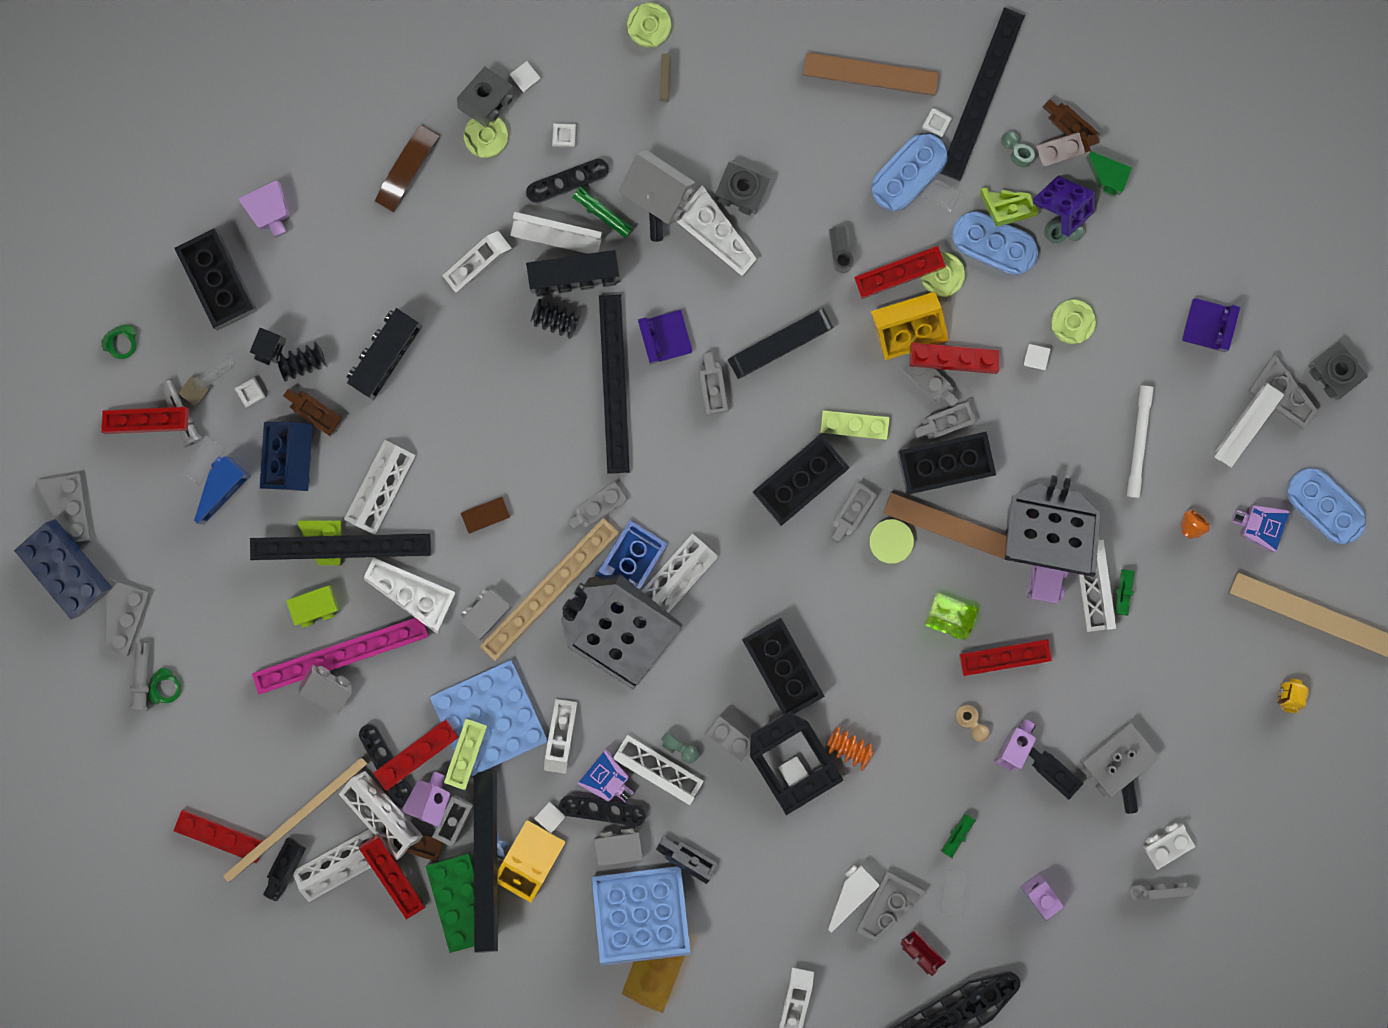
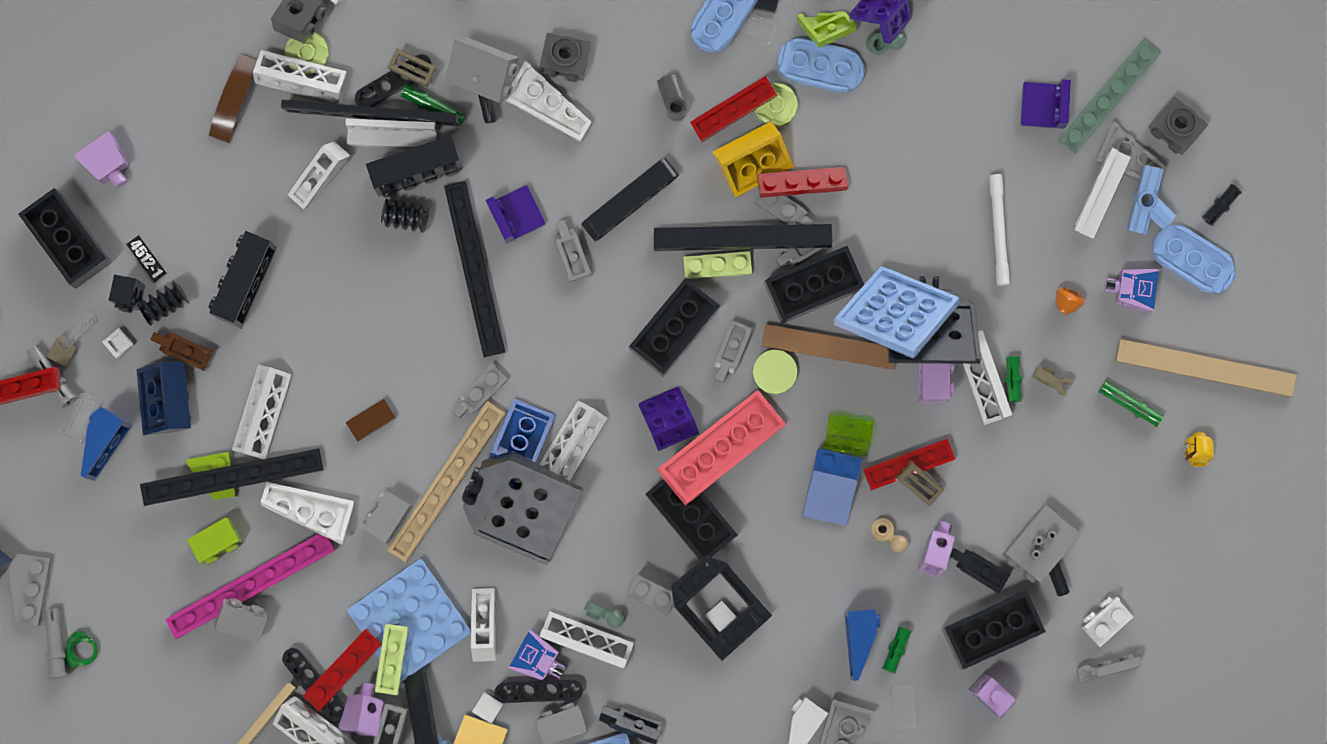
camera: 10 degrees left, 5 degrees down
(292, 313) = (146, 258): none -> black sticker
(471, 166) = (298, 84): none -> white fence
(538, 209) = (367, 112): none -> black tile
(564, 135) = (382, 39): white tile -> none
(603, 182) = (428, 76): none -> dark tan tile
(778, 567) = (668, 418): none -> dark purple bracket
(824, 607) = (721, 447): none -> coral plate
(849, 748) = (772, 582): orange piece -> none
(885, 402) = (743, 237): none -> black tile
(925, 665) = (832, 487): none -> slope
(926, 815) = (860, 632): none -> blue slope
(1002, 665) = (907, 472): none -> dark tan tile
(1022, 508) = (897, 311): none -> light blue plate
(1036, 357) = (882, 167): white tile -> none
(1056, 834) = (993, 630): none -> black brick
(1073, 321) = (911, 127): yellowish green tile -> none
(1157, 595) = (1047, 377): none -> dark tan plate
(1255, 656) = (1154, 417): none -> green pin
(1275, 327) = (1109, 96): none -> sand green plate
(1296, 450) = (1155, 208): none -> light blue piece
(1365, 457) = (1221, 205): none -> black pin

